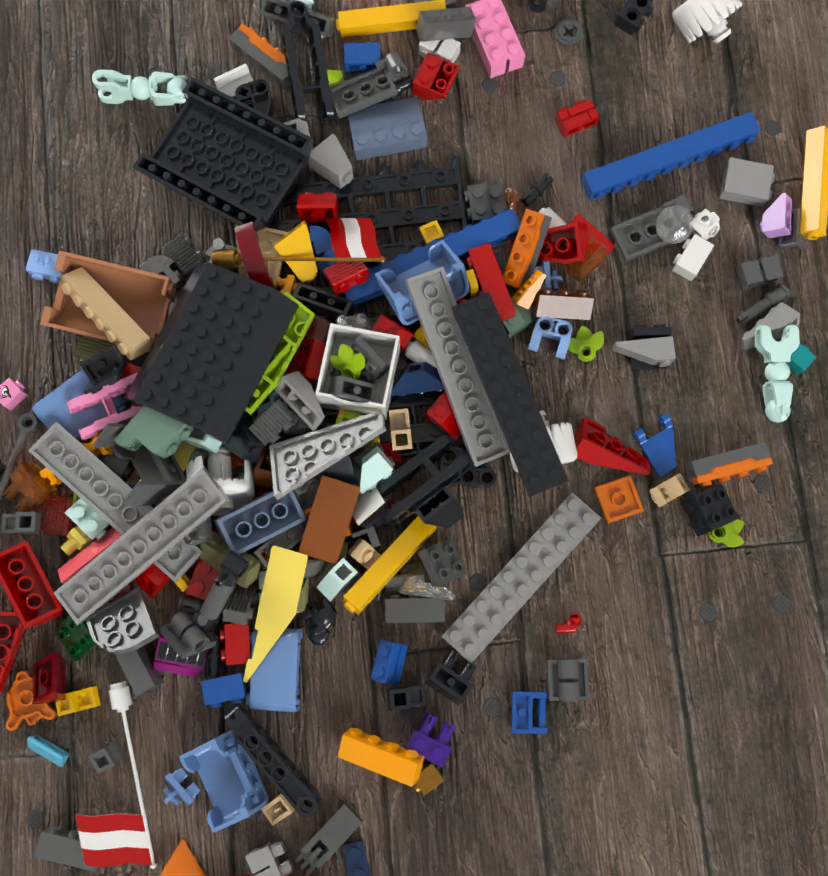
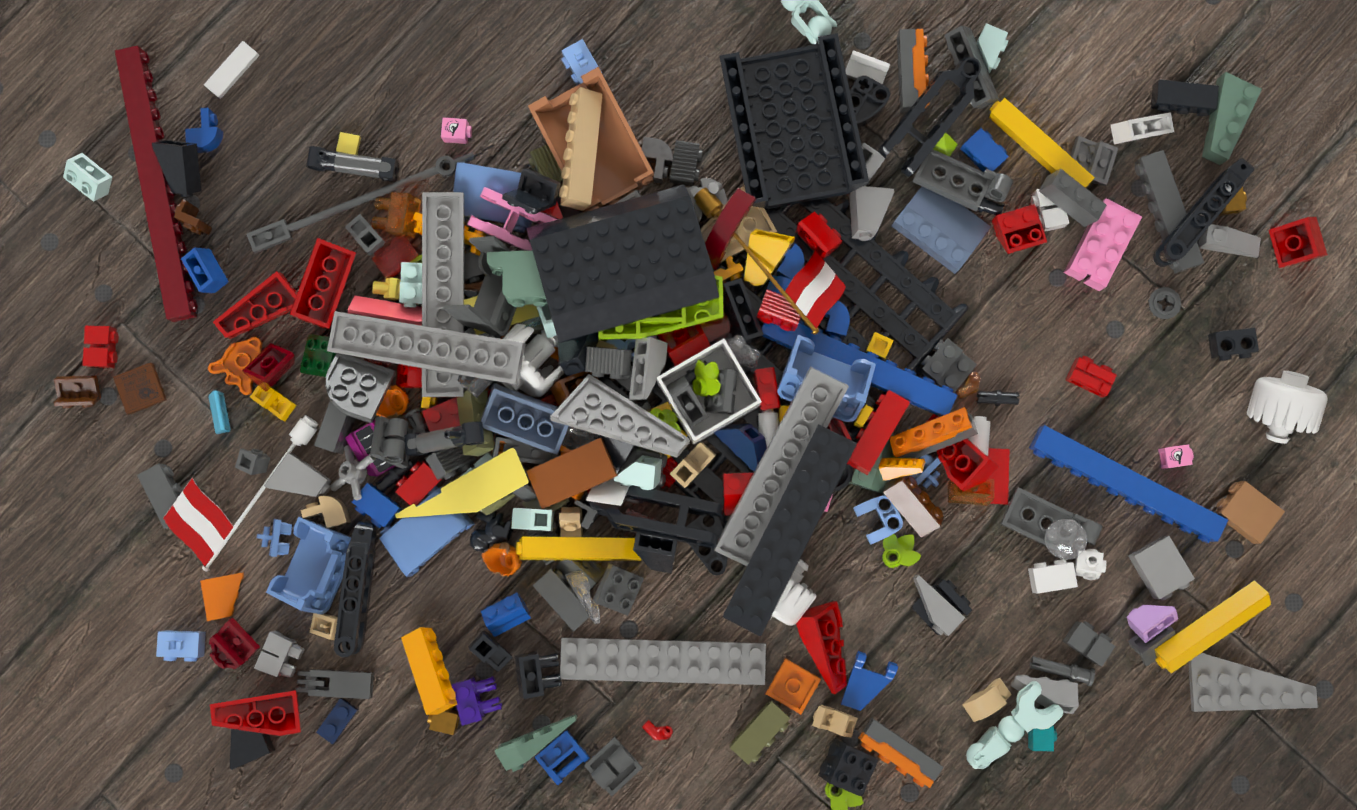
camera: 50 degrees right, 5 degrees up
(150, 731) = (298, 477): none -> light grey slope
(161, 609) = (394, 403): none -> orange hair
(184, 685) = (352, 472): none -> light grey bar
(197, 726) = (332, 508): none -> tan brick
(346, 629) = (502, 559): none -> orange hair
(389, 244) = (838, 320): none -> blue brick
(498, 736) = (521, 749): none -> sand green wedge
(632, 550) = (760, 732): none -> olive brick
(678, 110) = (1176, 456): none -> bright pink brick
(743, 373) = (987, 701): none -> tan brick
(757, 94) = (1249, 511): none -> medium nougat brick

